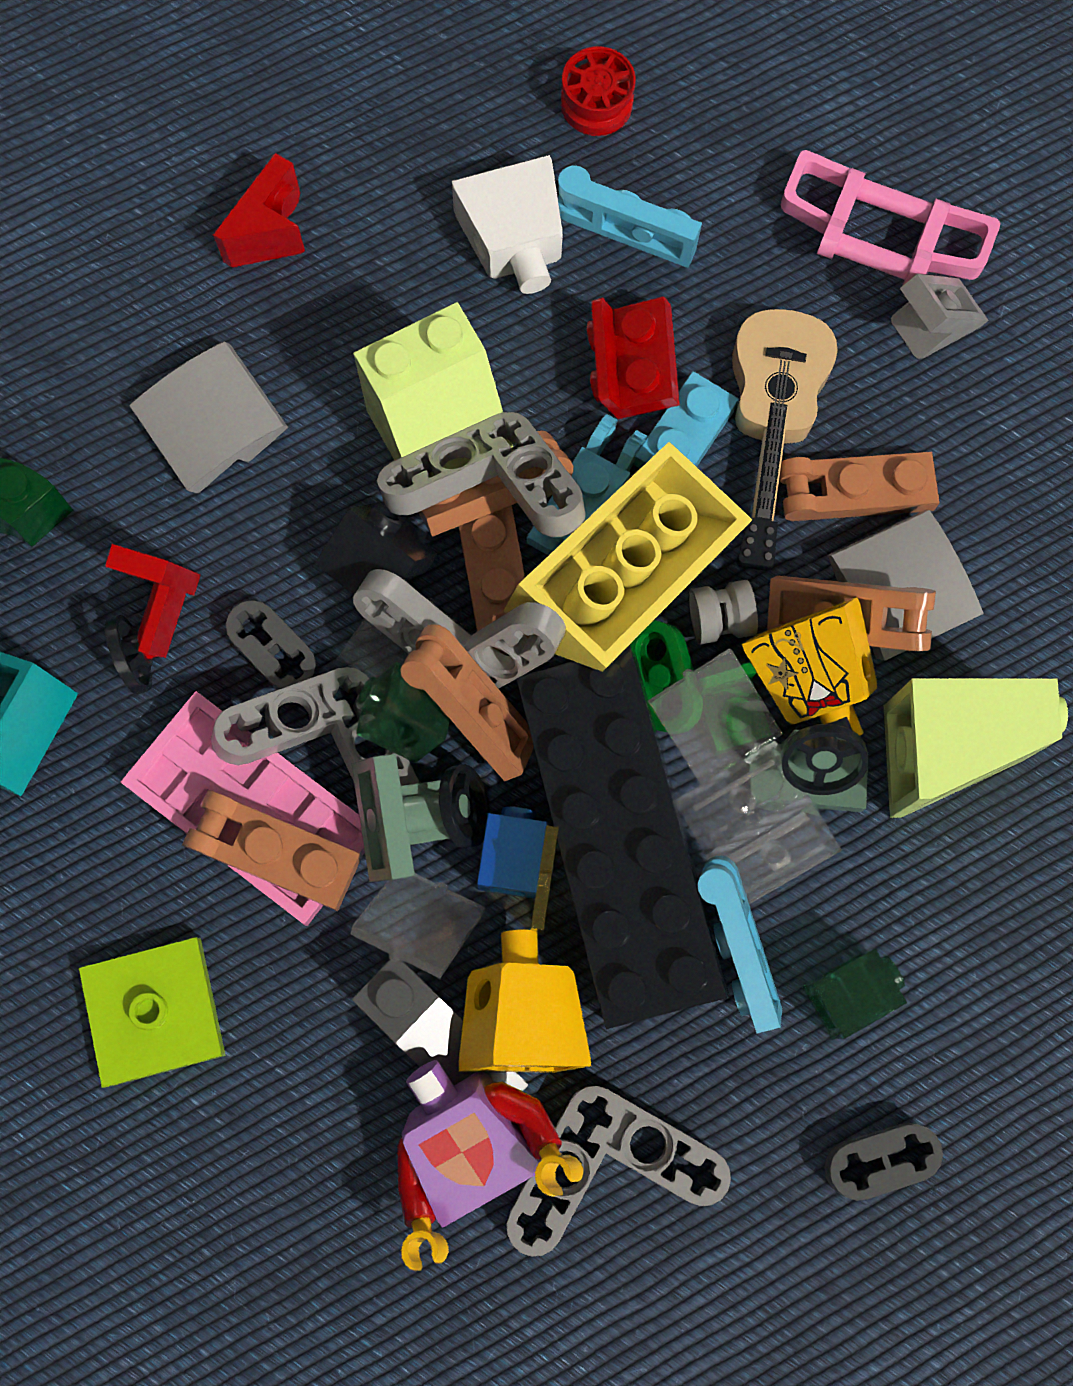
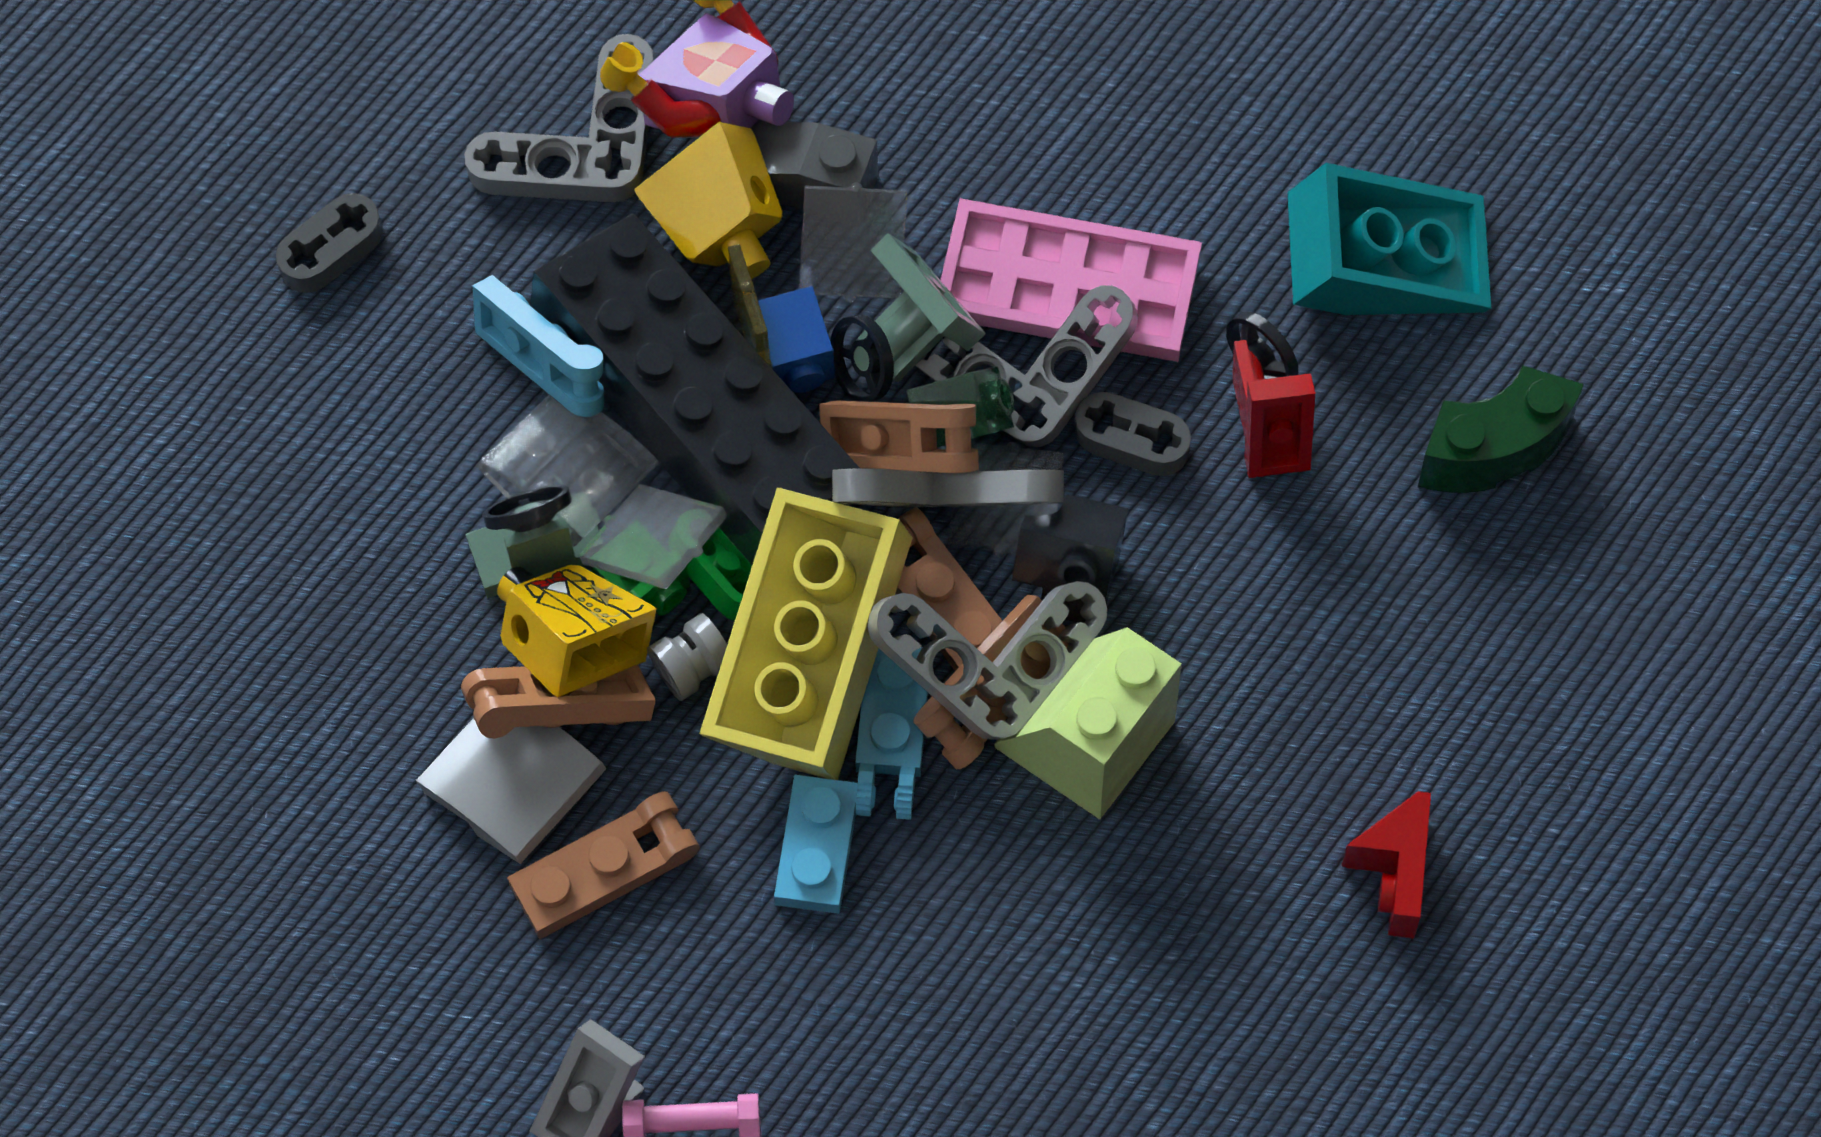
camera: 160 degrees right, 10 degrees down
(151, 1012) = (1061, 83): lime plate -> none
(208, 416) = (1330, 626): light grey slope -> none
(275, 851) = (1021, 238): nougat plate -> none
(512, 220) = (1120, 983): white torso -> none
(626, 217) = (996, 1046): medium azure plate -> none
(633, 357) = (912, 886): red bracket -> none
(780, 370) = (740, 955): tan piece -> none
(856, 993) = (411, 360): clear green brick -> none
(963, 731) = (390, 619): yellowish green slope -> none

